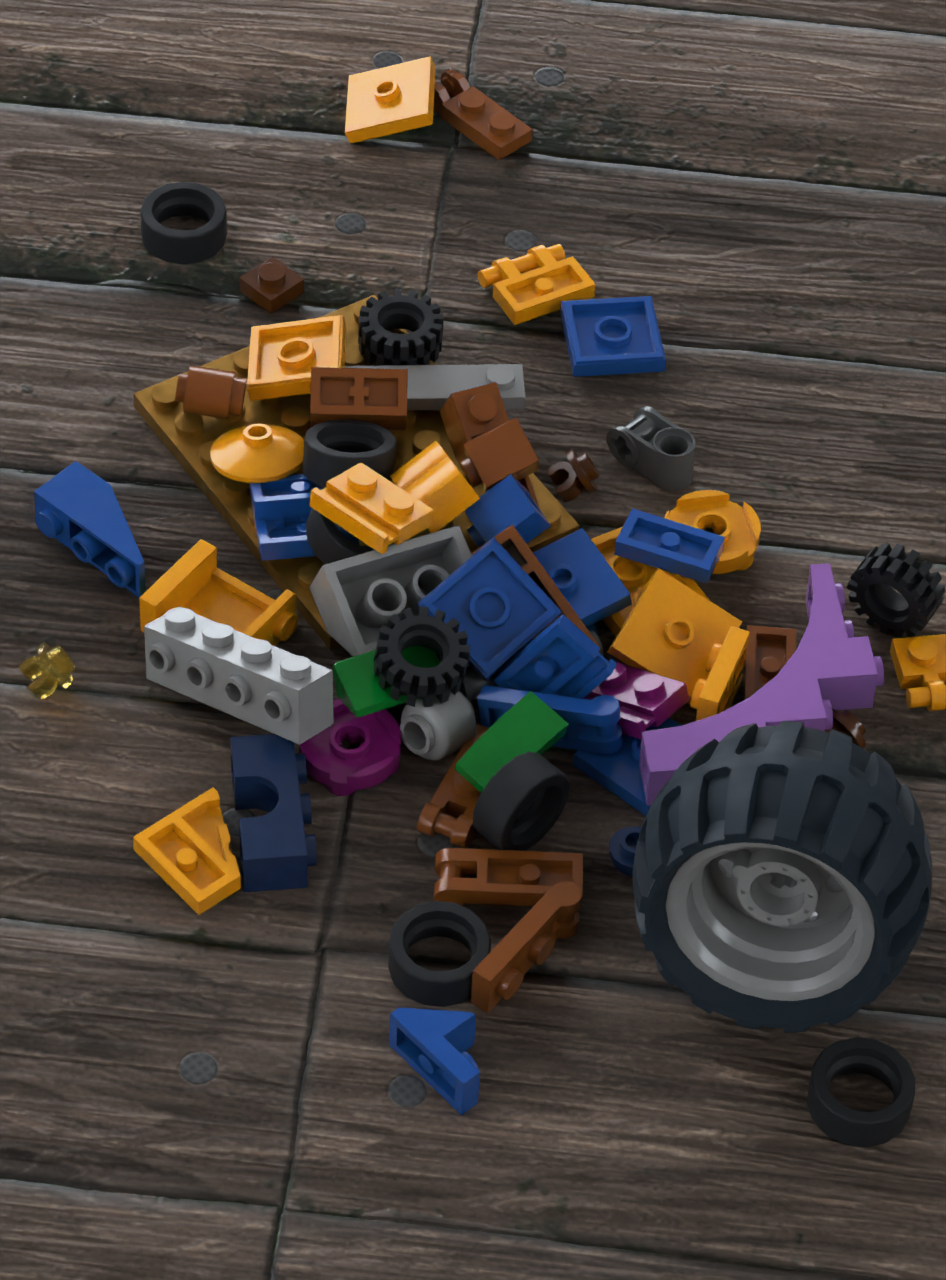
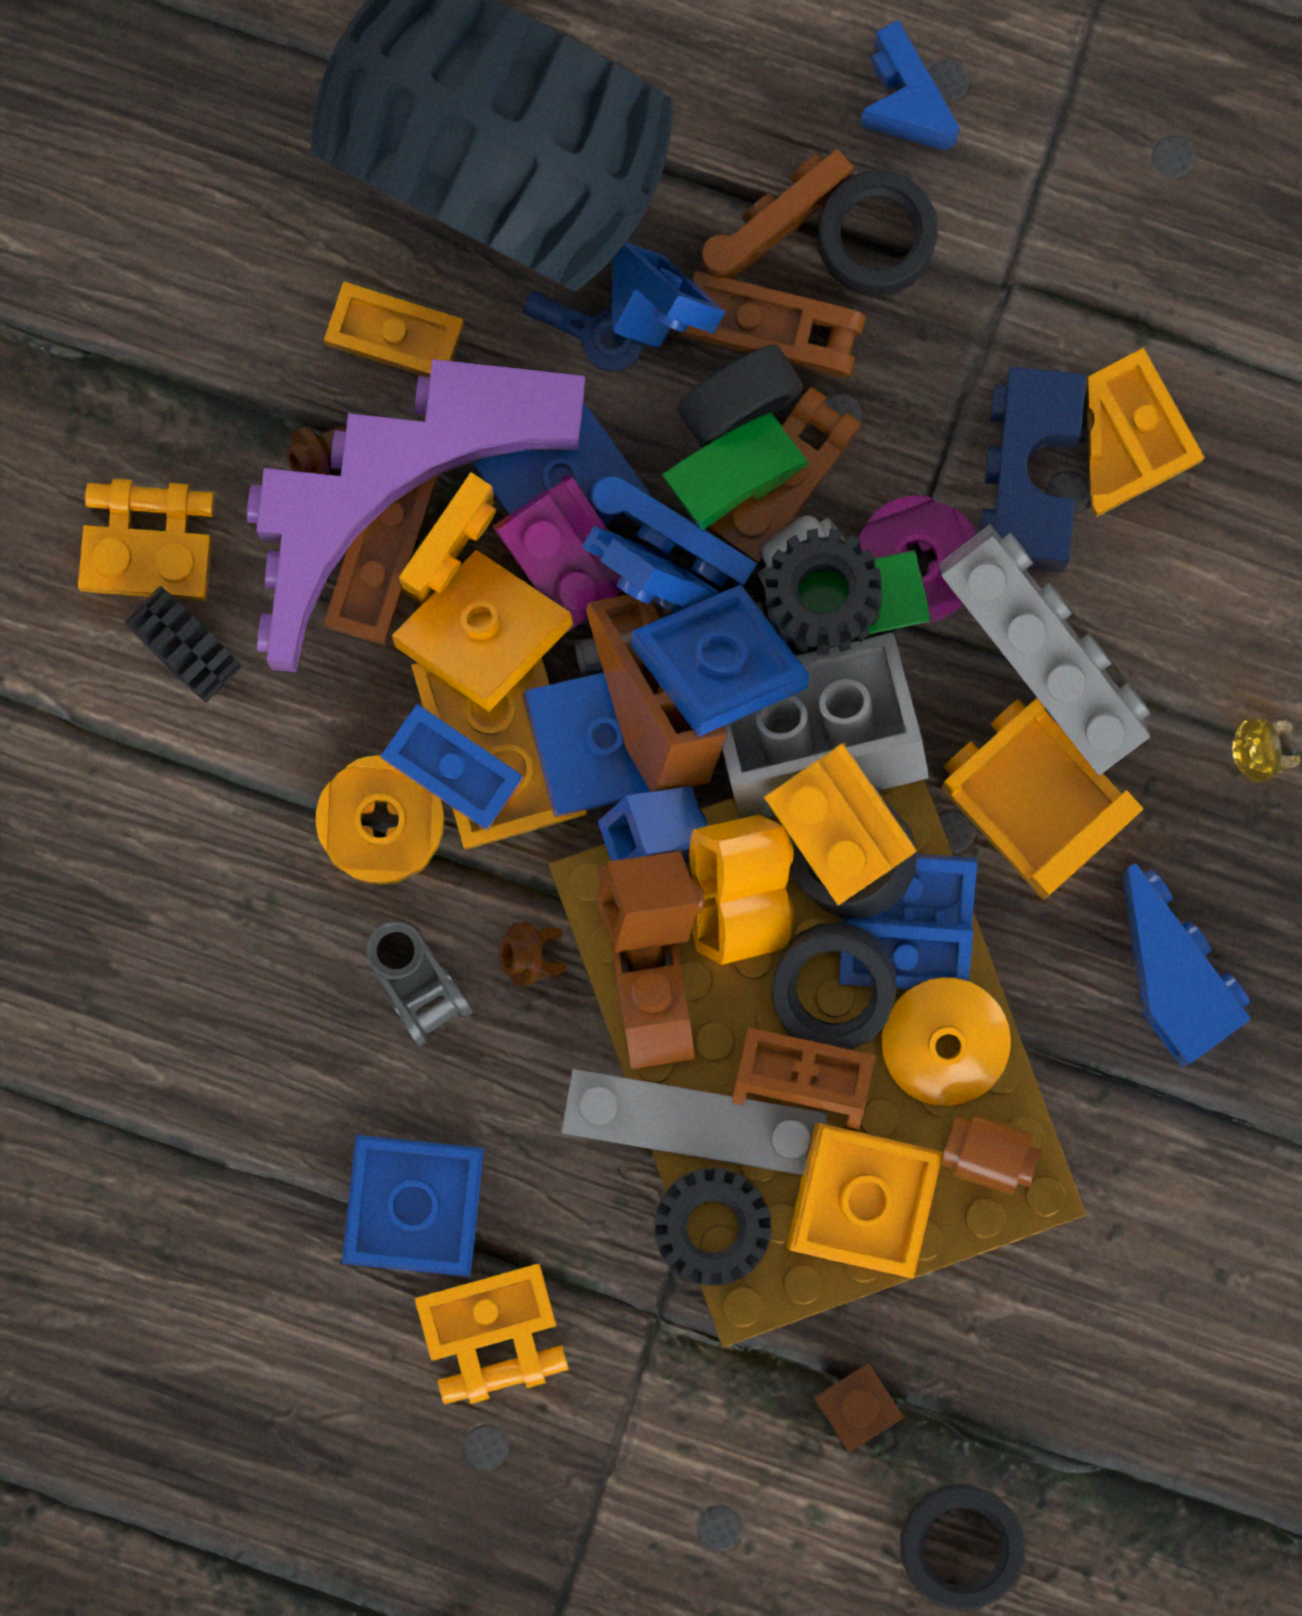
camera: 165 degrees left, 35 degrees up
(600, 861) = (655, 296): none -> blue slope

